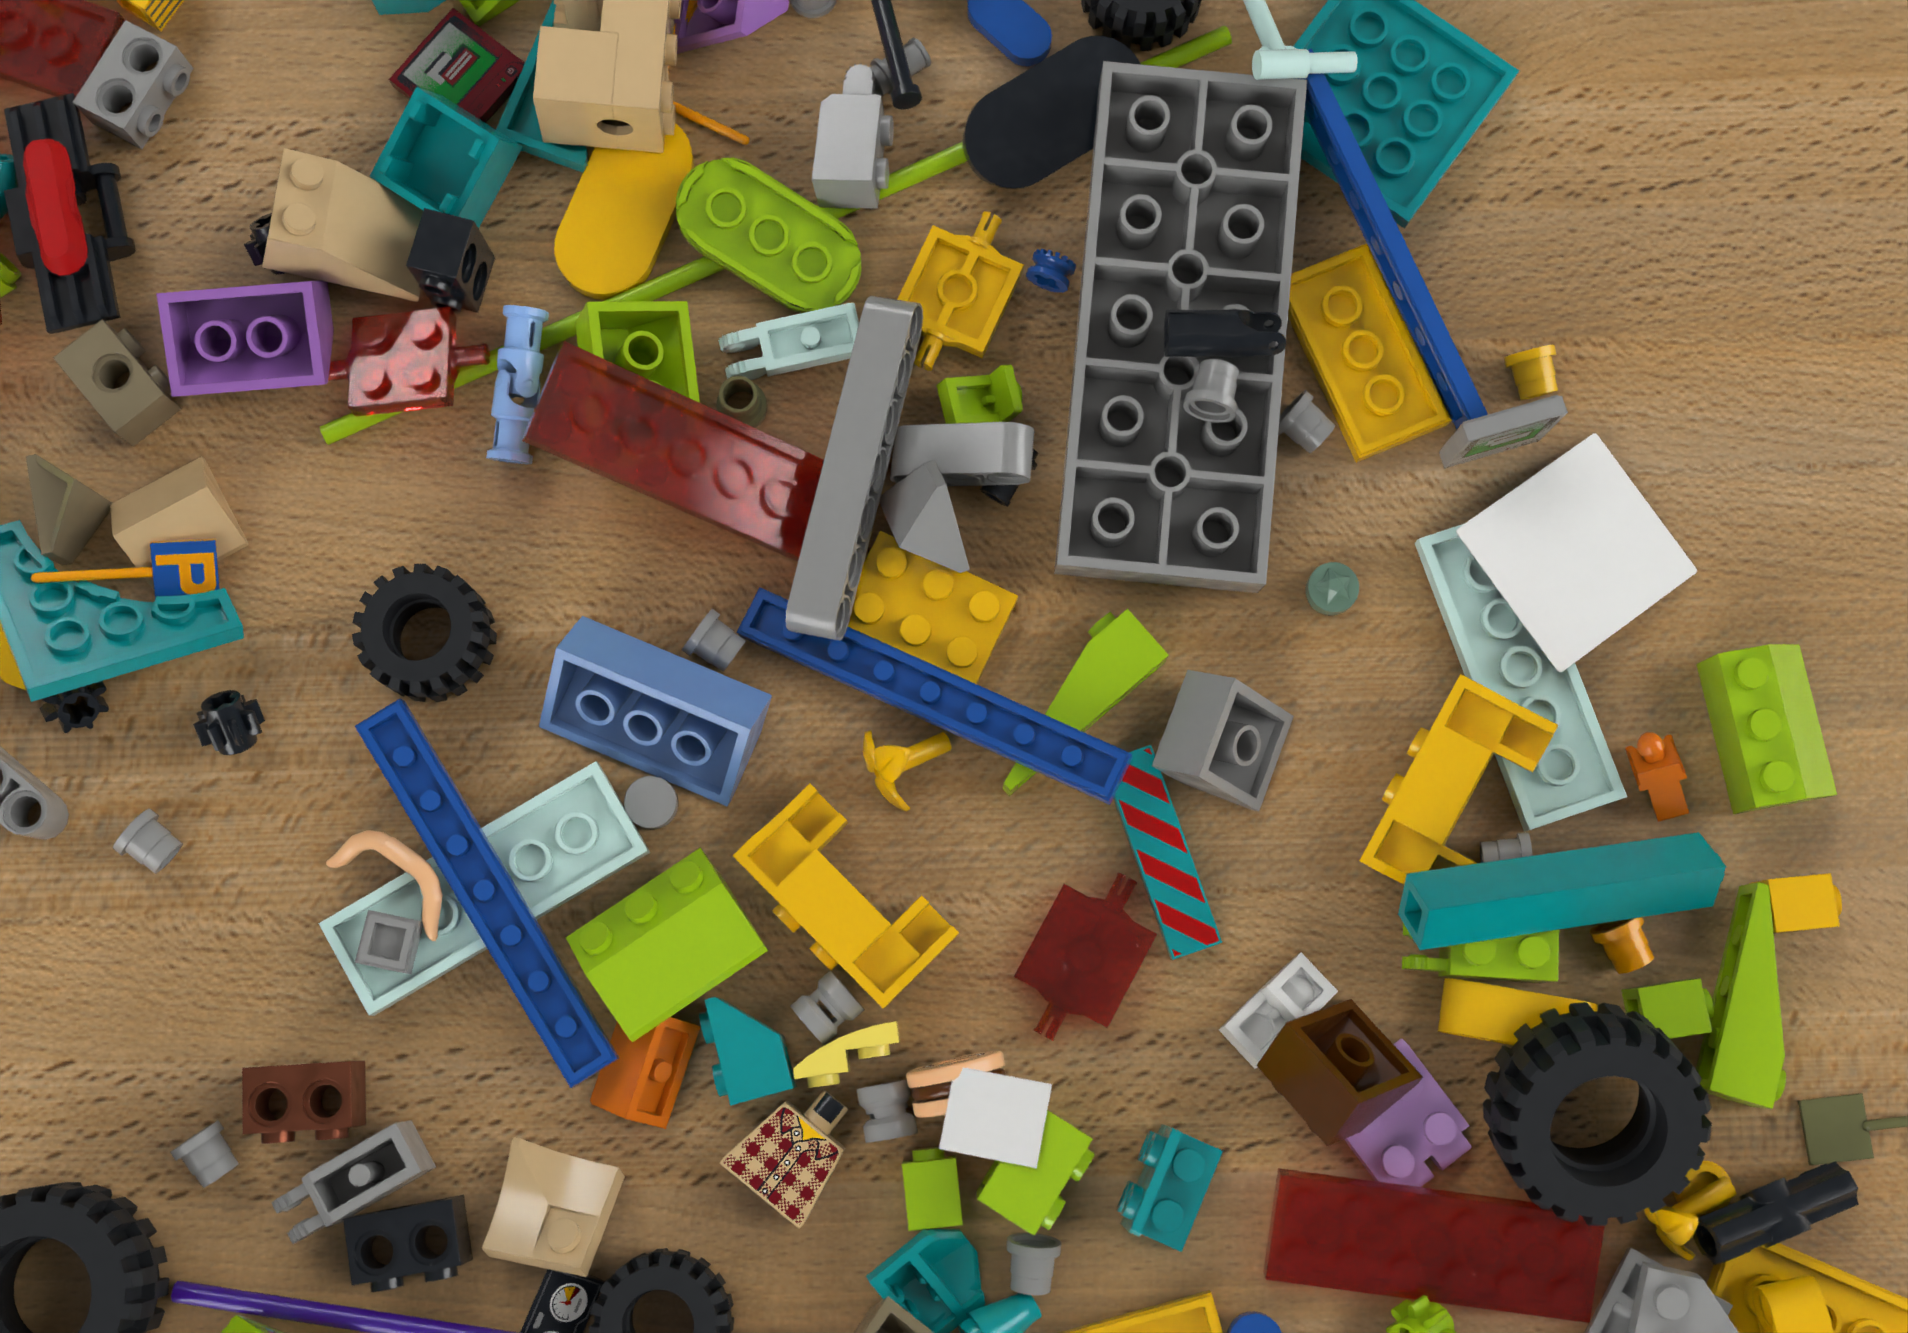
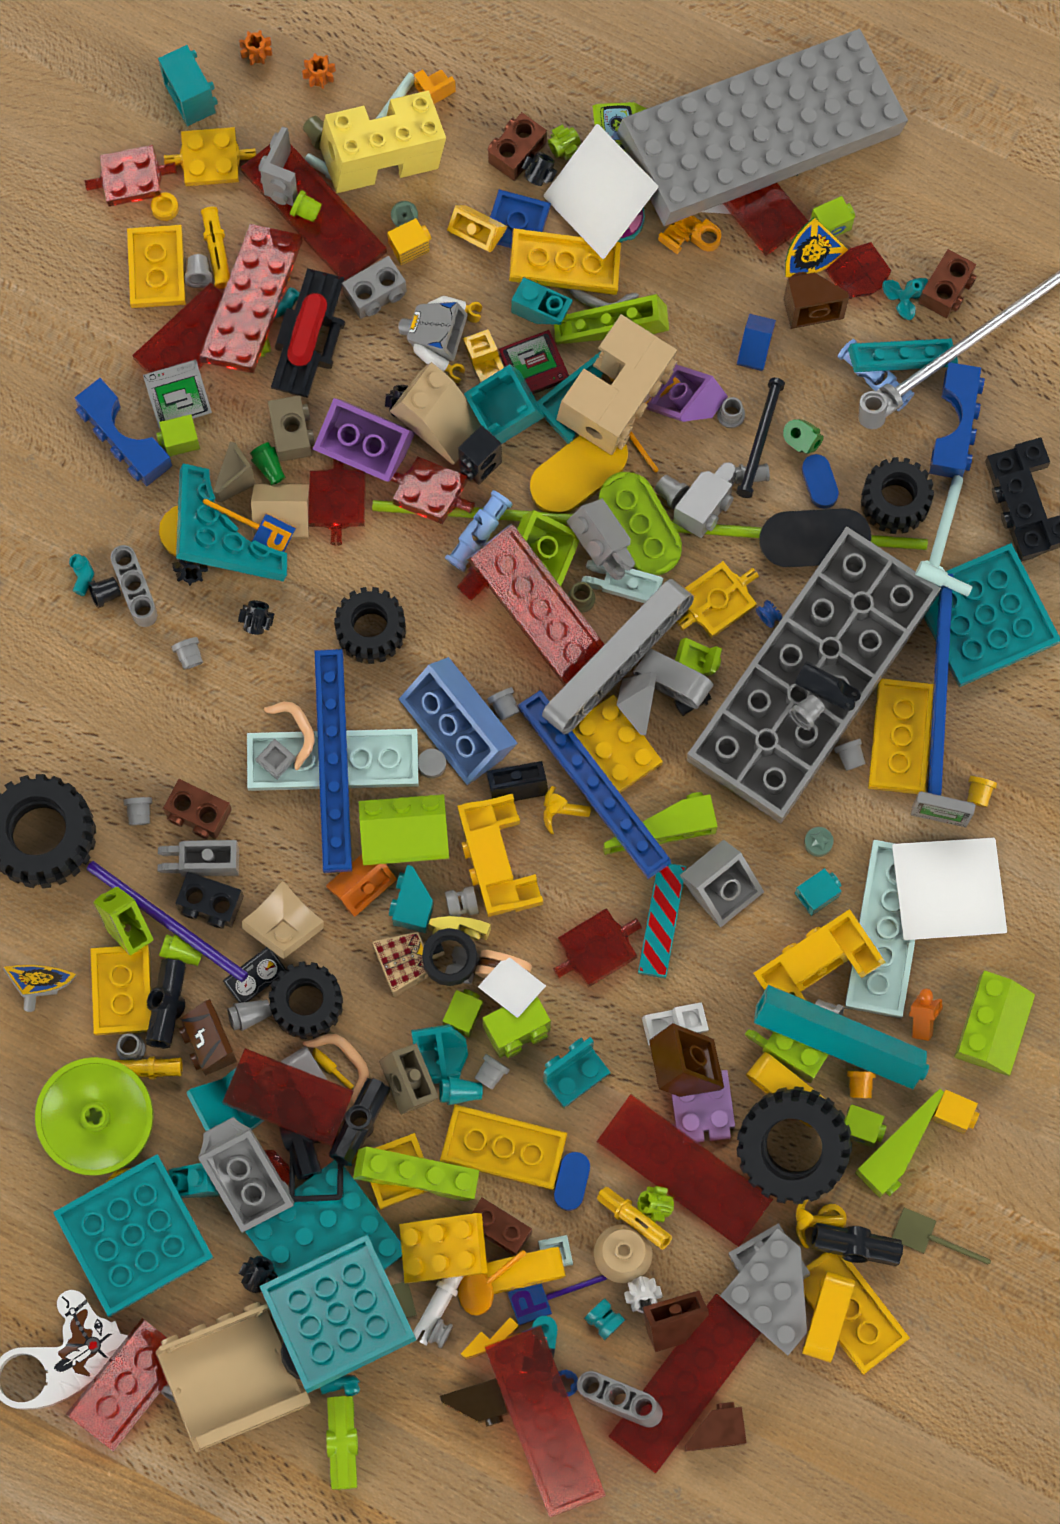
camera: 30 degrees right, 5 degrees down
(112, 457) = (268, 463): none -> green cone
(260, 457) = (337, 499): none -> clear red plate
(274, 98) = (438, 331): none -> light grey torso
(367, 100) = (483, 354): none -> yellow slope
(554, 477) = (471, 584): none -> clear red piece
(723, 288) = (603, 537): none -> light grey hinge
(789, 158) = (671, 490): none -> light grey piece
(806, 754) = (522, 781): none -> black slope
(820, 1120) = (446, 935): none -> black tyre
(1381, 668) = (818, 891): none -> teal brick

